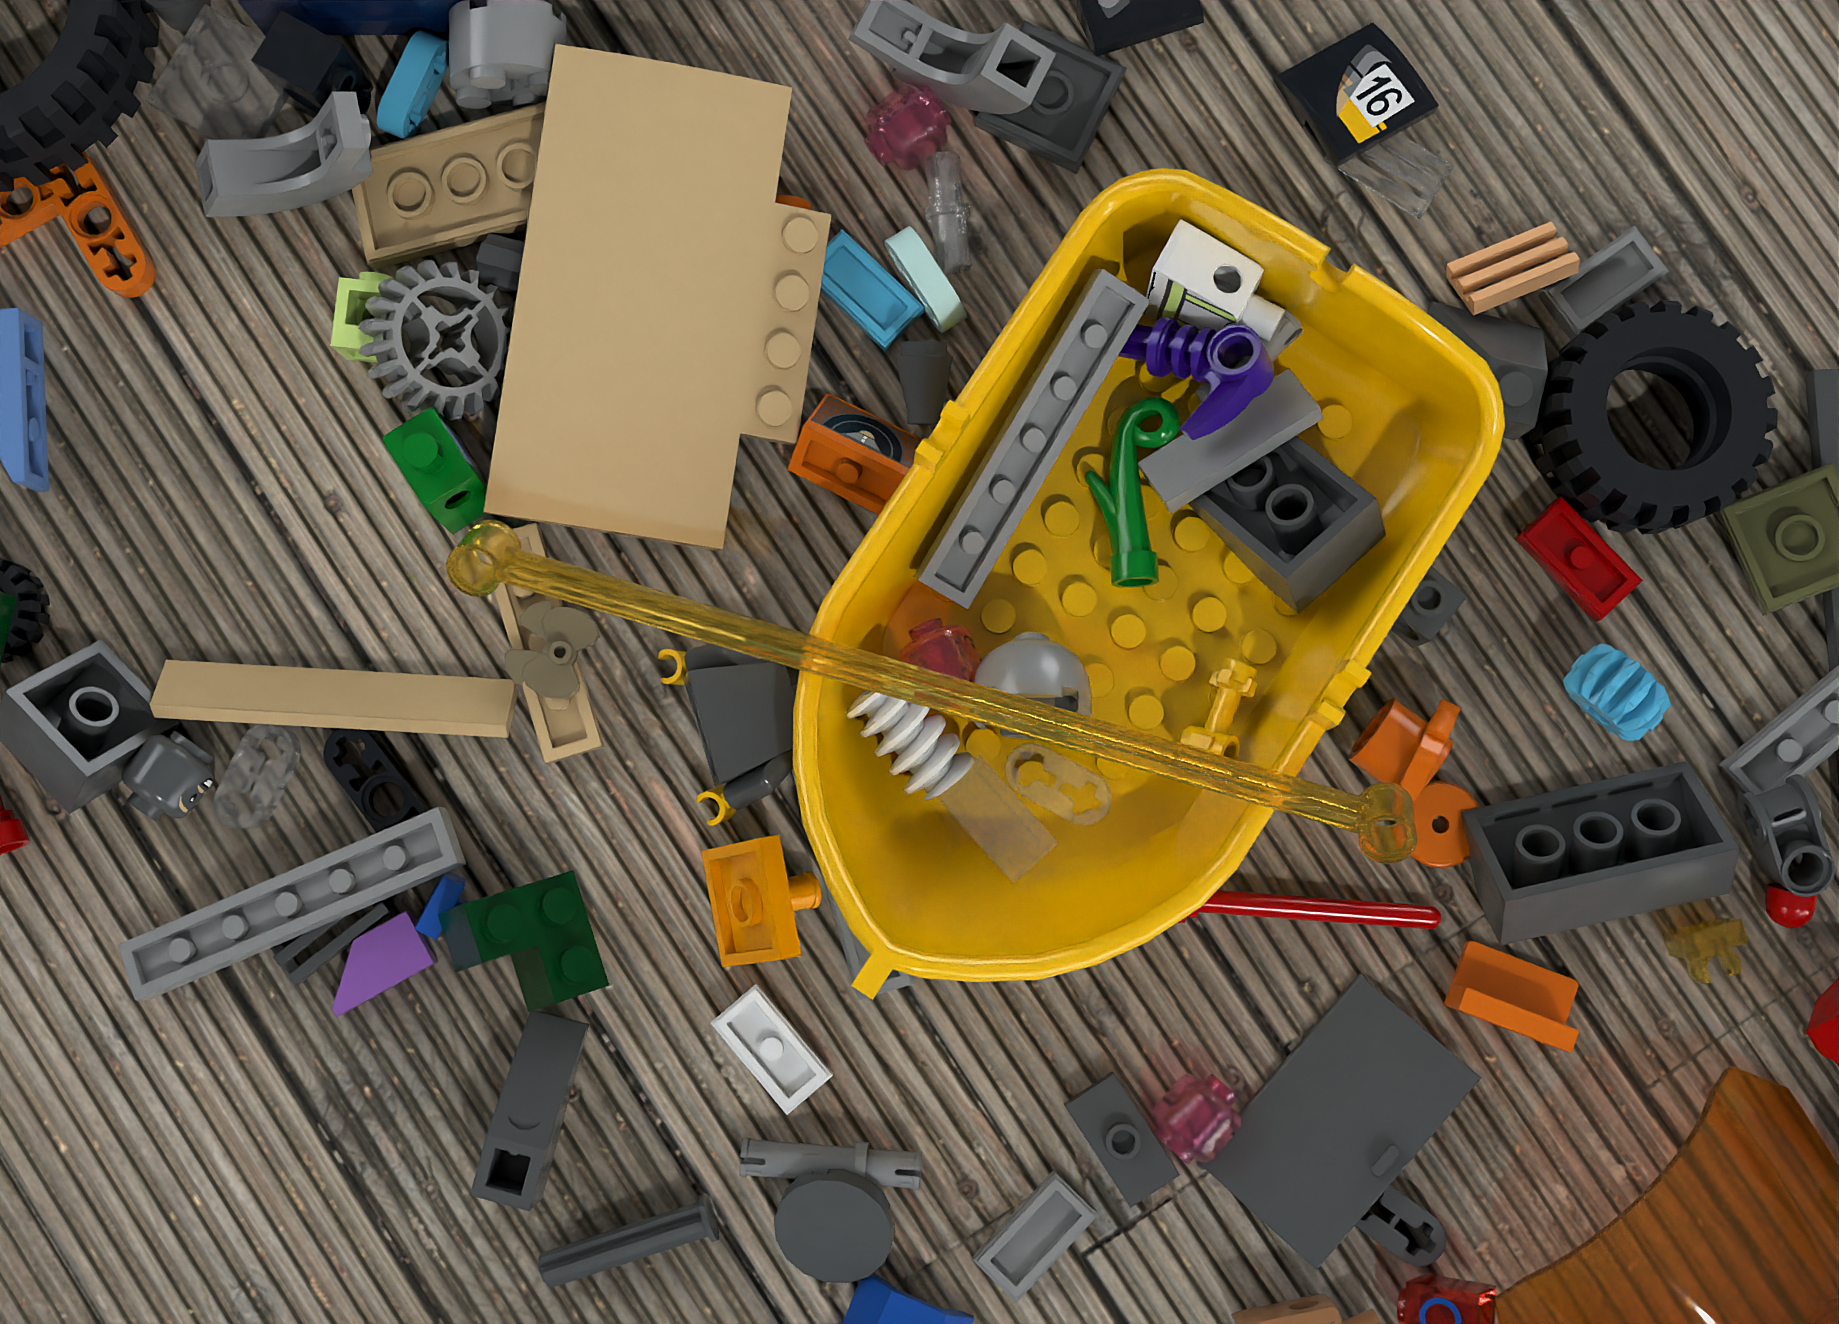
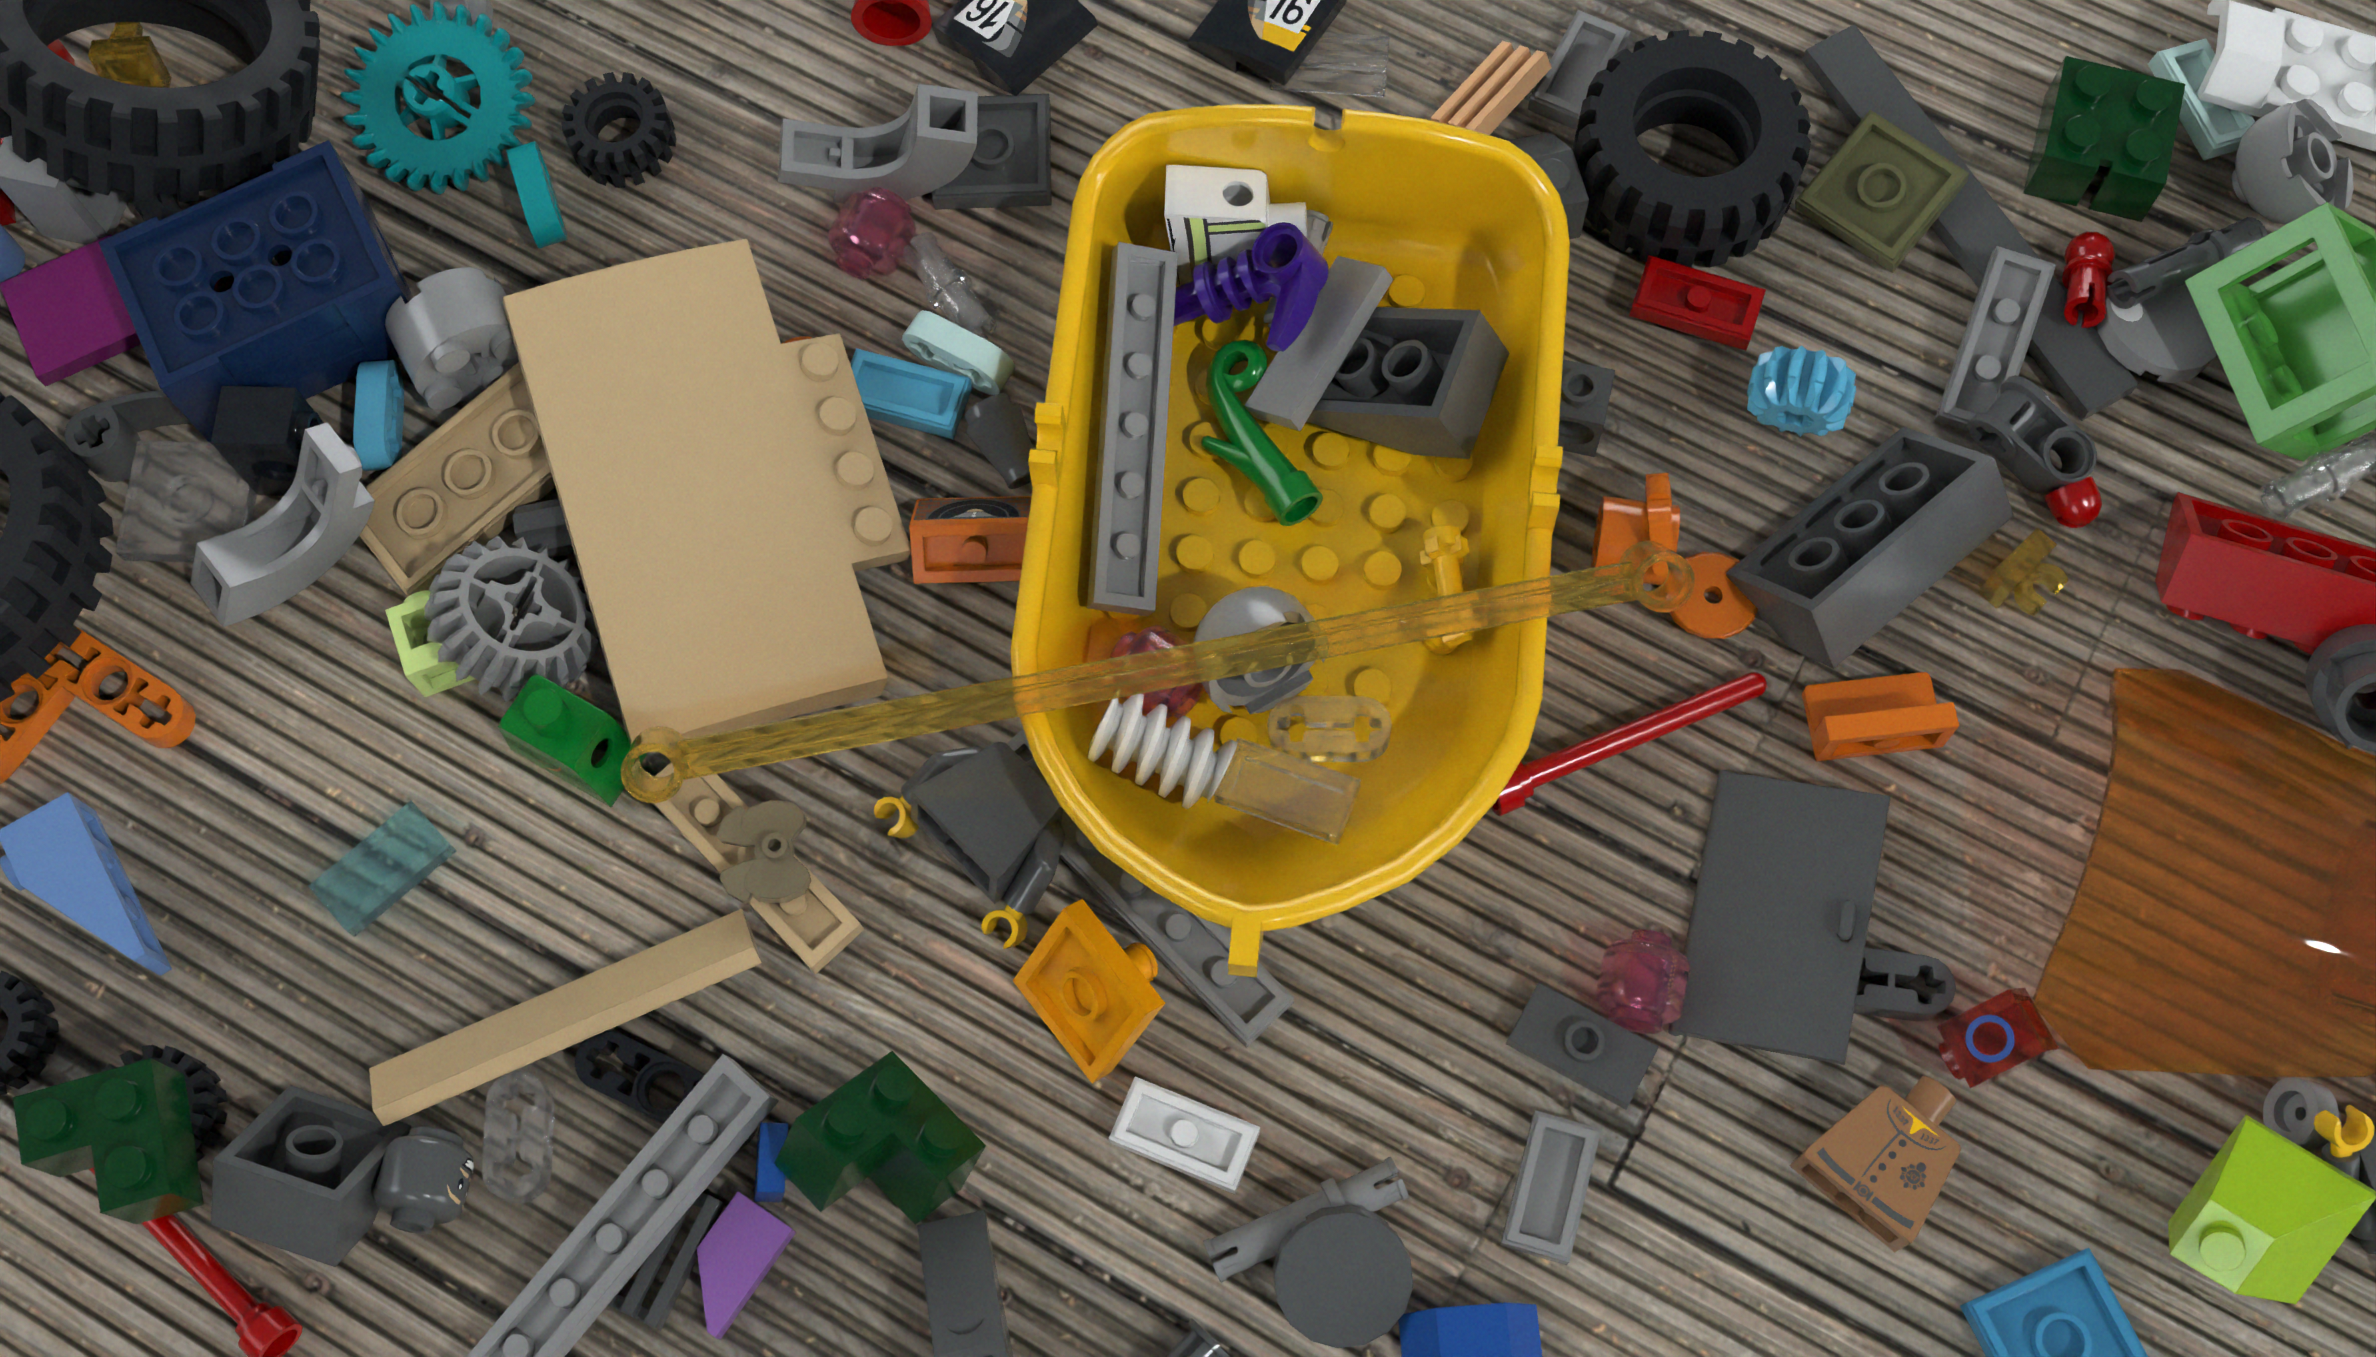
camera: 20 degrees left, 15 degrees down
(247, 494) = (382, 868): none -> clear light blue tile

